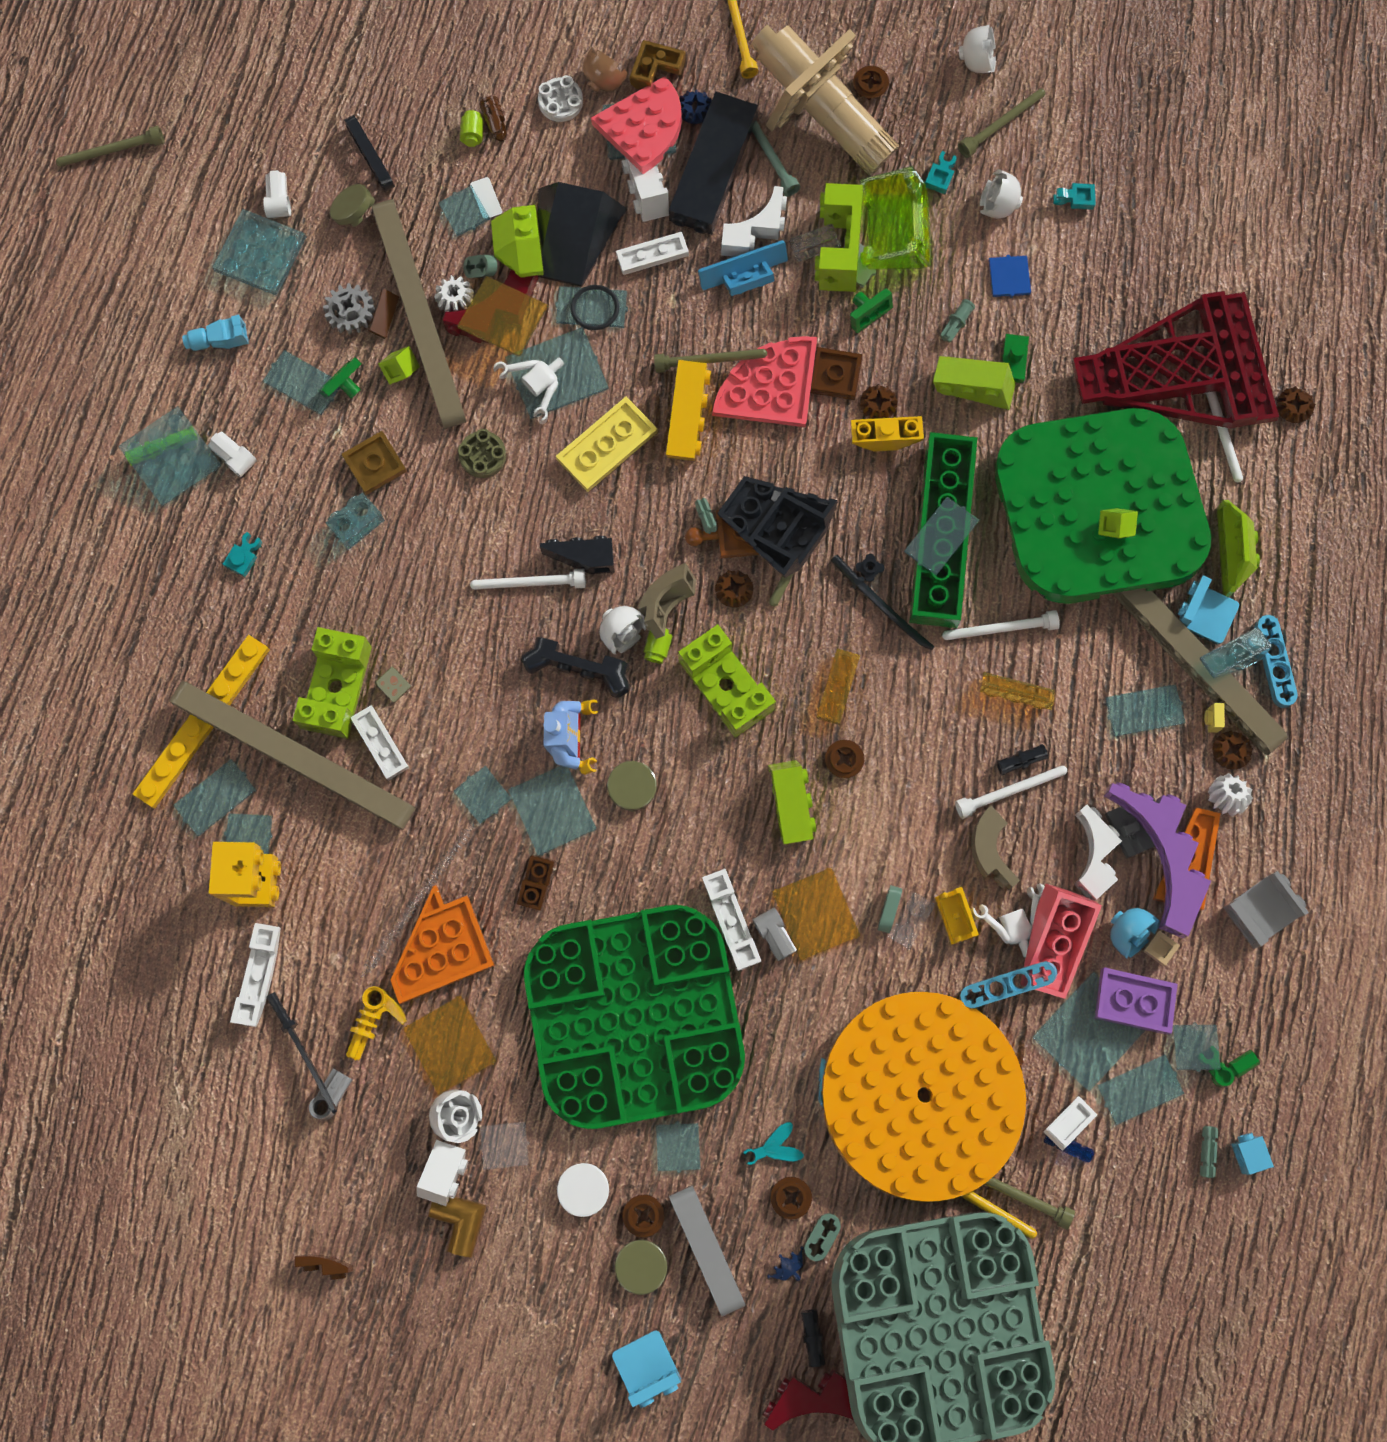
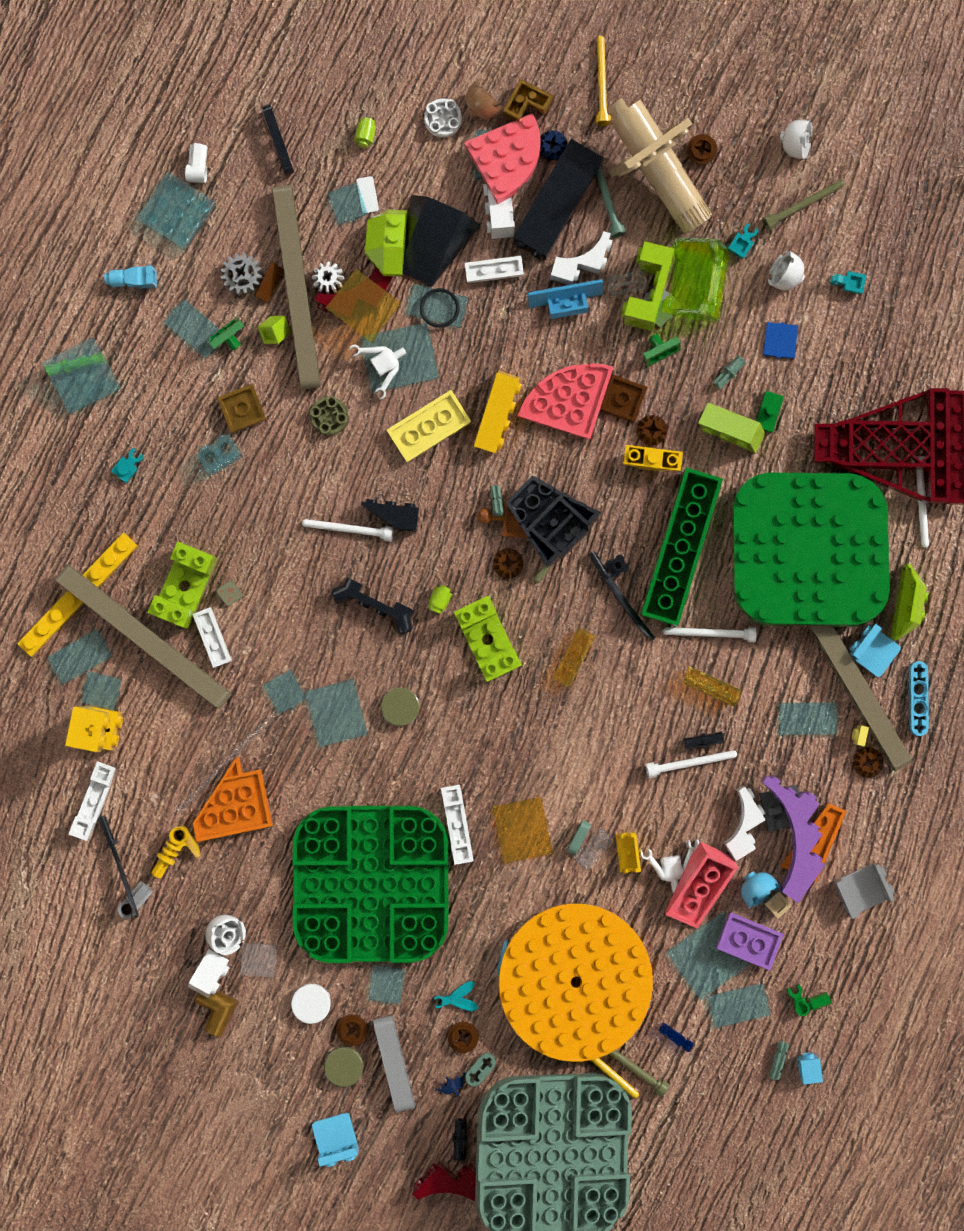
camera: 10 degrees right, 10 degrees up
(152, 136) = (102, 92): olive piece -> none
(235, 457) = (133, 384): white piece -> none
(330, 1266) = (118, 1024): reddish brown slope -> none
(351, 205) = (256, 184): olive tile -> none
(449, 1044) = (229, 878): clear yellow piece -> none
(480, 266) = (352, 258): sand green beam -> none
(494, 117) = (385, 125): reddish brown hinge -> none
(536, 882) = (314, 767): reddish brown slope -> none
(563, 734) = (354, 658): light blue torso -> none
(621, 628) = (413, 581): white cylinder -> none
(664, 362) = (486, 365): olive piece -> none
(664, 596) = (451, 561): dark tan arch -> none
(772, 929) = (487, 838): light grey piece -> none
(792, 801) = (520, 742): lime wedge -> none
(845, 748) = (576, 718): reddish brown gear -> none
(941, 536) = (677, 555): clear light blue piece -> none
(985, 849) = (660, 801): dark tan arch -> none
(1009, 987) = (655, 912): medium azure beam -> none
(1070, 1123) = (680, 1021): white tile -> none
(1118, 523) = (817, 572): lime panel -> none
(1196, 1047) = (787, 983): clear light blue piece -> none
(1230, 794) = (857, 798): white gear -> none
(1237, 654) = (886, 690): clear light blue slope -> none

